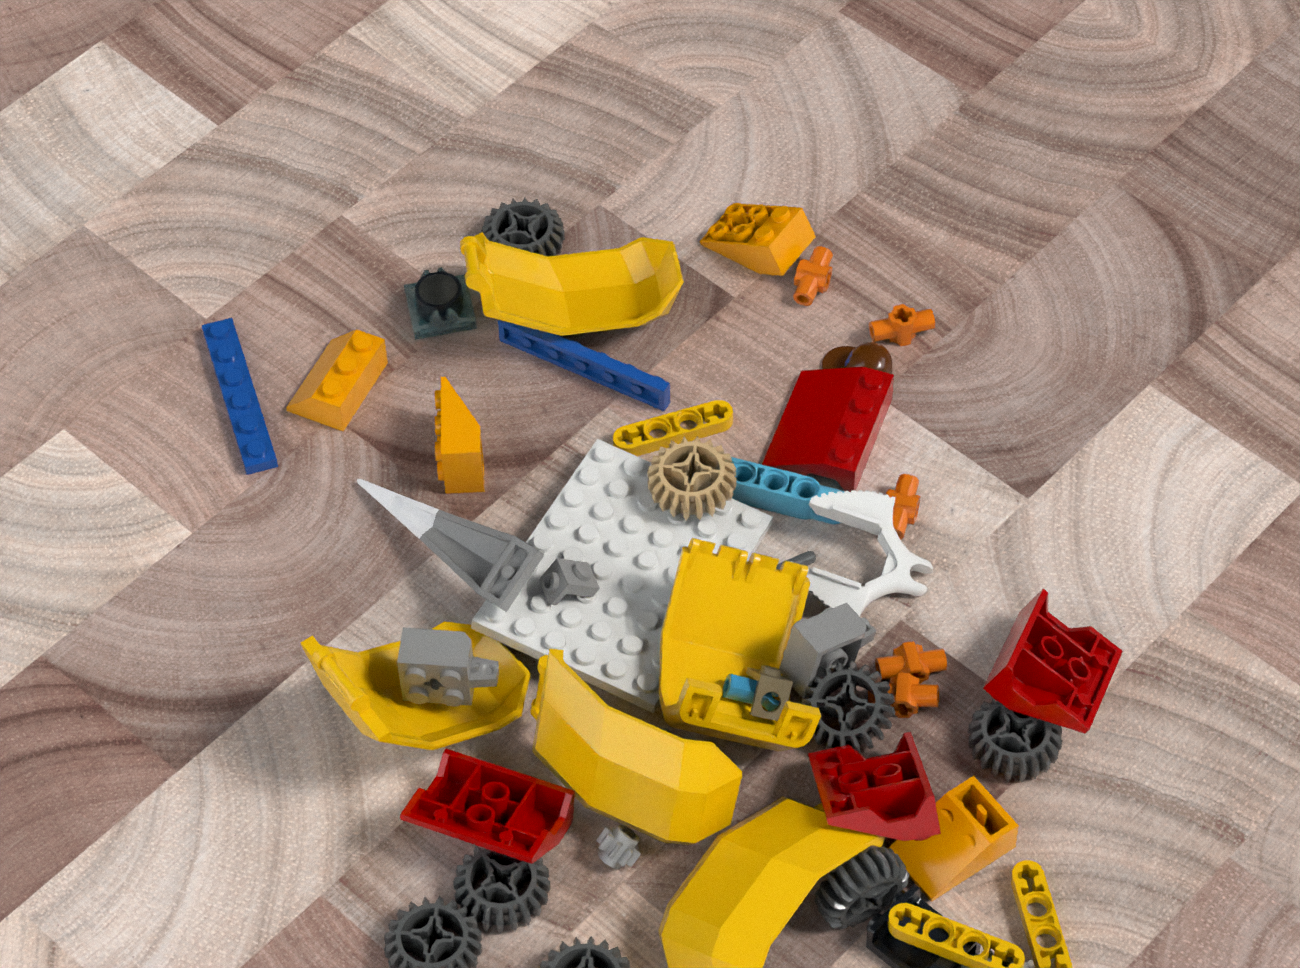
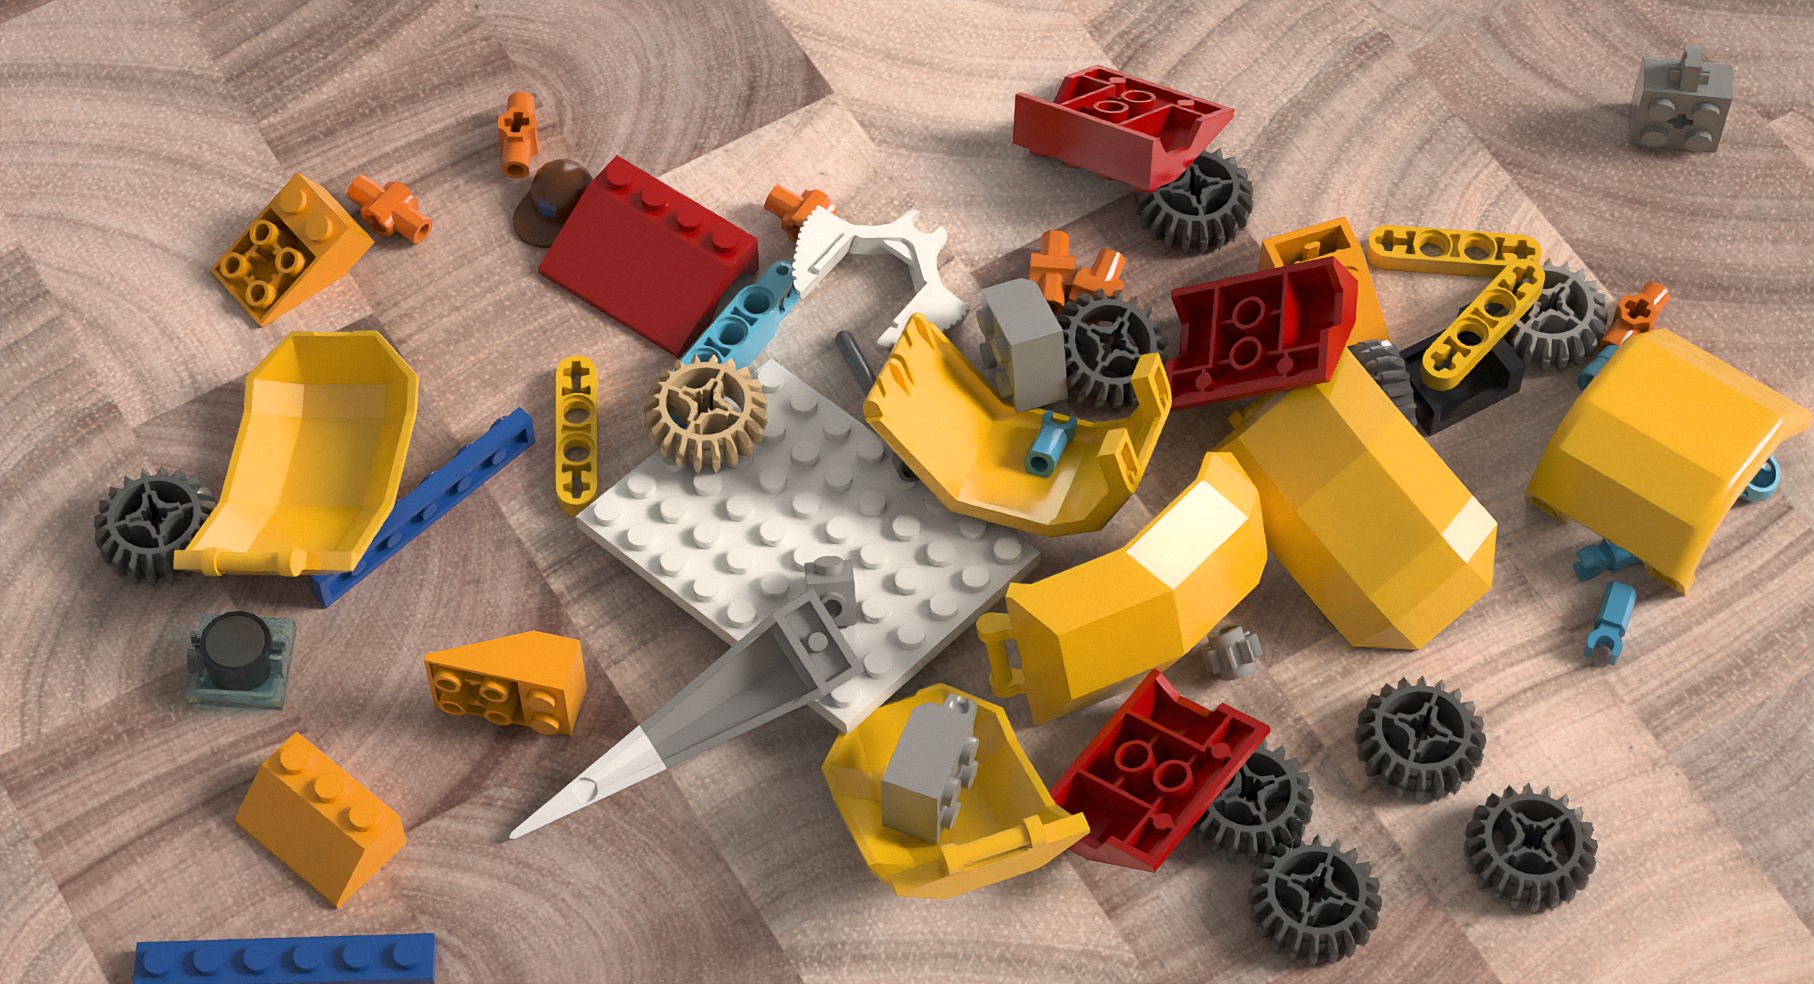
camera: 75 degrees left, 5 degrees up
(769, 680) = (1054, 411): dark tan bracket -> none

